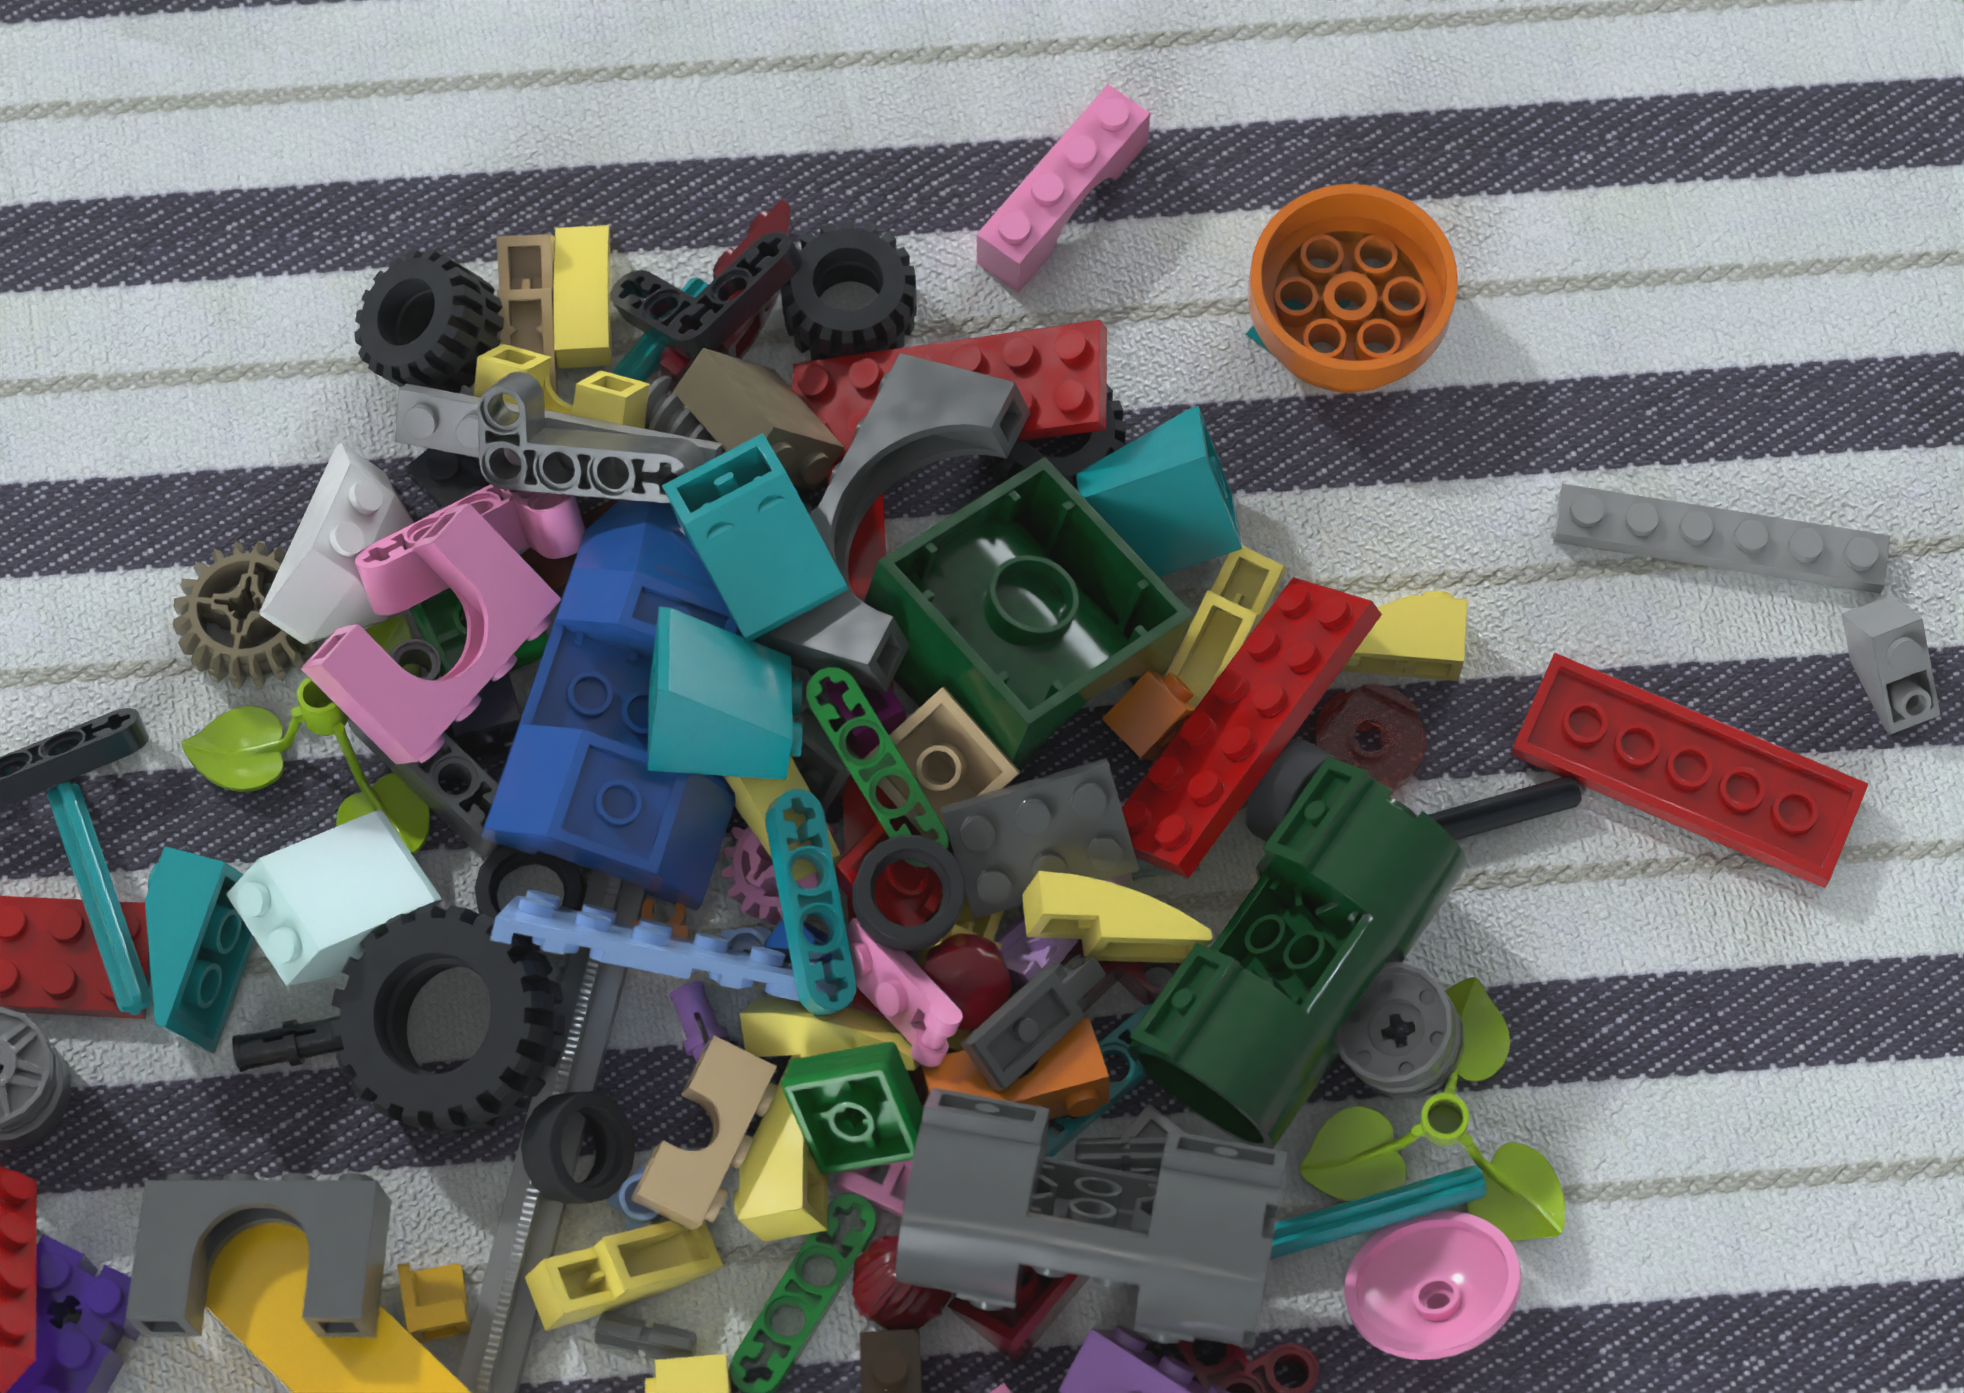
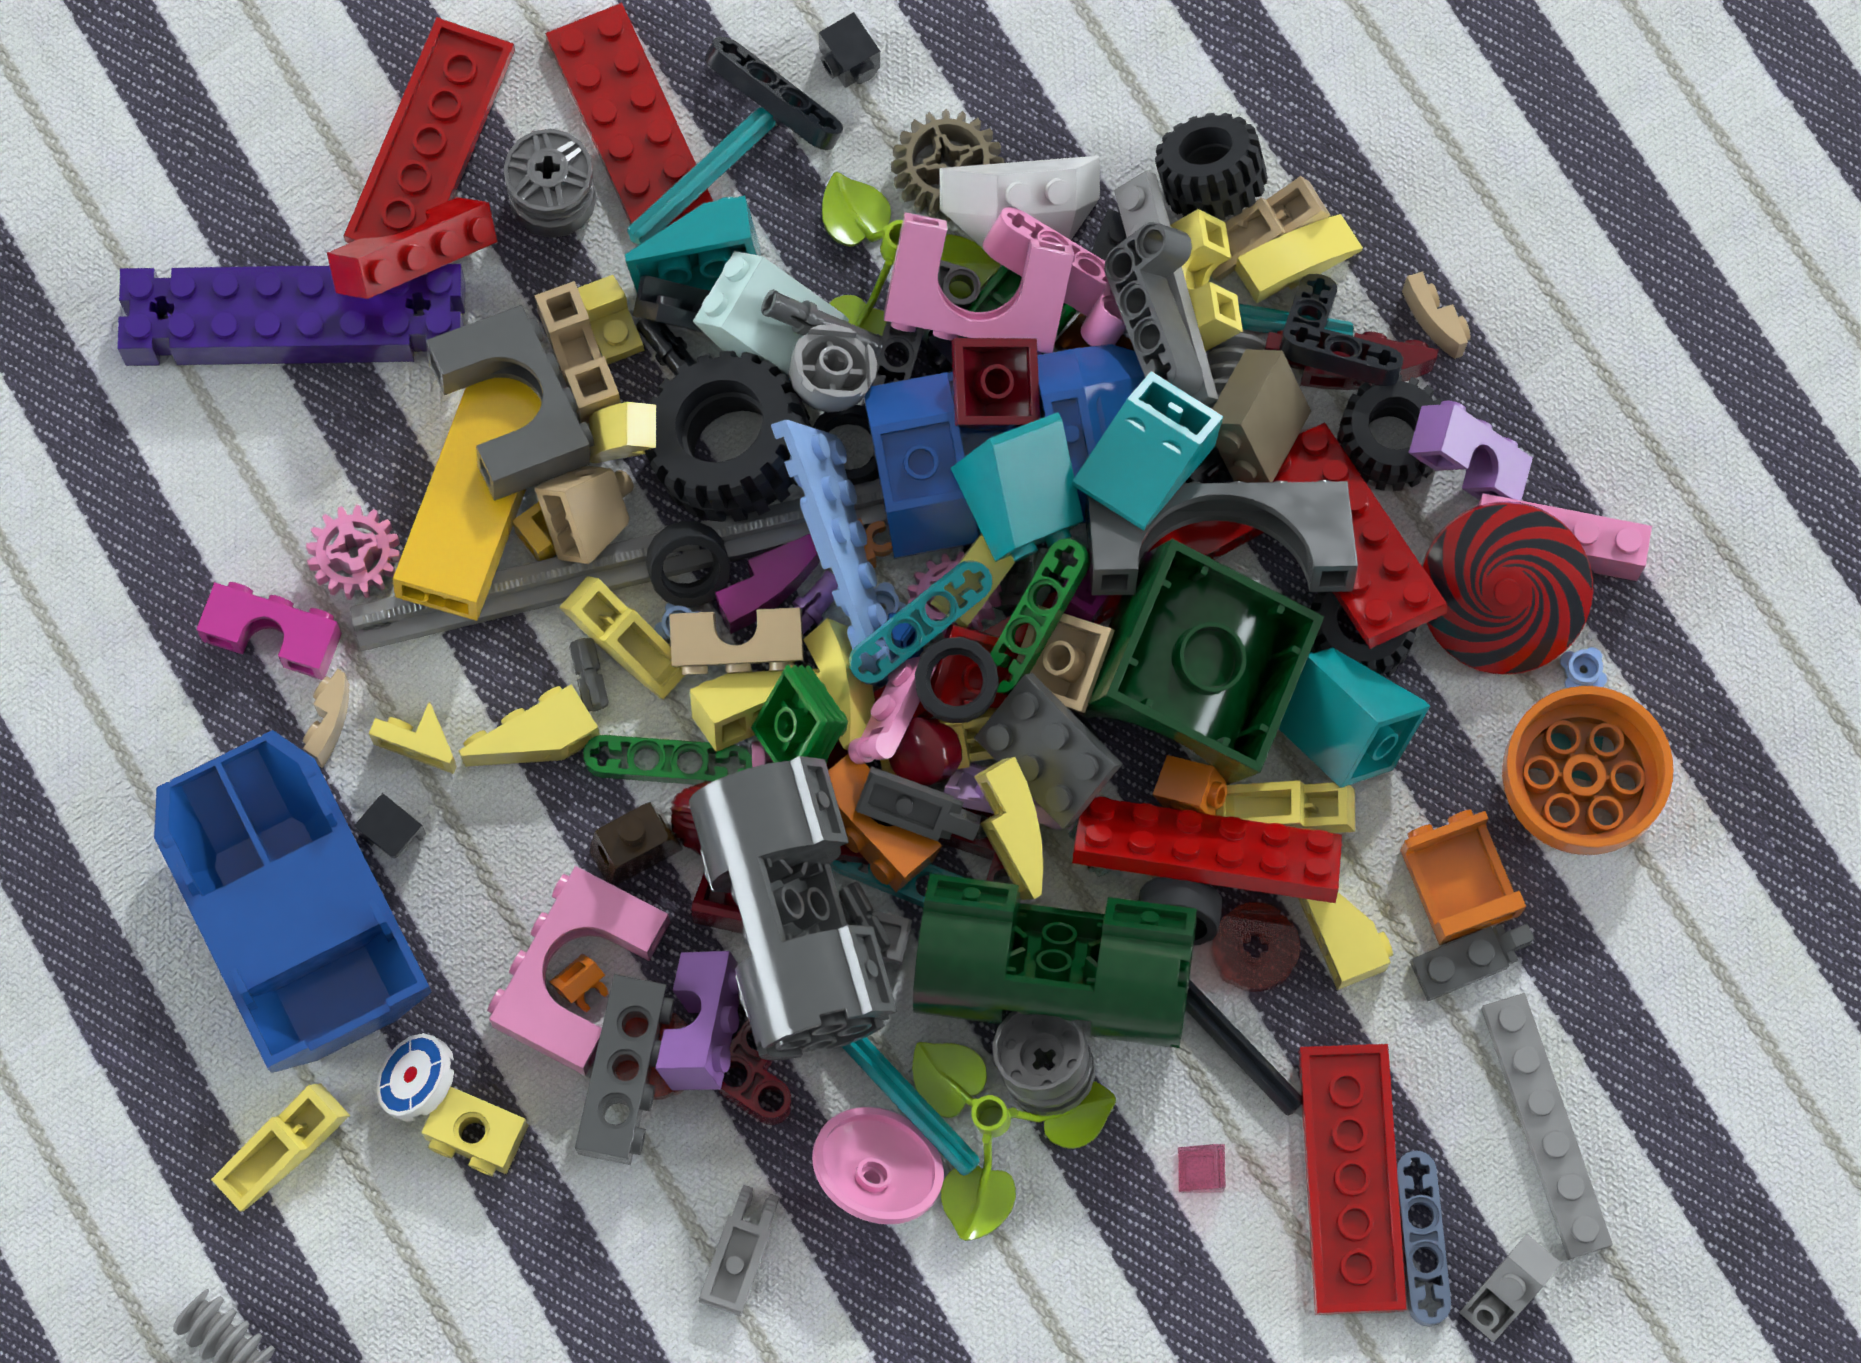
camera: 60 degrees right, 5 degrees up
(41, 655) = (849, 51): none -> black brick
(208, 1098) = (611, 319): none -> light yellow slope
(210, 1149) = (576, 349): none -> tan arch
(241, 1006) = (669, 302): none -> black bracket
(362, 848) = (805, 315): none -> dark grey pin
(378, 1131) = (622, 431): none -> light yellow slope
(442, 850) = (832, 368): none -> light grey cylinder
(445, 1238) = (585, 511): none -> tan torso
(572, 667) = (995, 382): none -> dark red slope
(646, 1065) = (771, 582): none -> magenta slope
(754, 186) = (1440, 324): none -> tan slope
(915, 218) = (1455, 440): none -> medium lavender arch
(1098, 247) = (1510, 587): none -> dish
(1228, 229) = (1589, 658): none -> light blue plate
(1398, 486) = (1460, 877): none -> orange panel
(1494, 524) = (1469, 959): none -> dark grey hinge
(1600, 925) = (1201, 1169): none -> clear pink slope
(1792, 721) = (1427, 1238): none -> sand blue beam

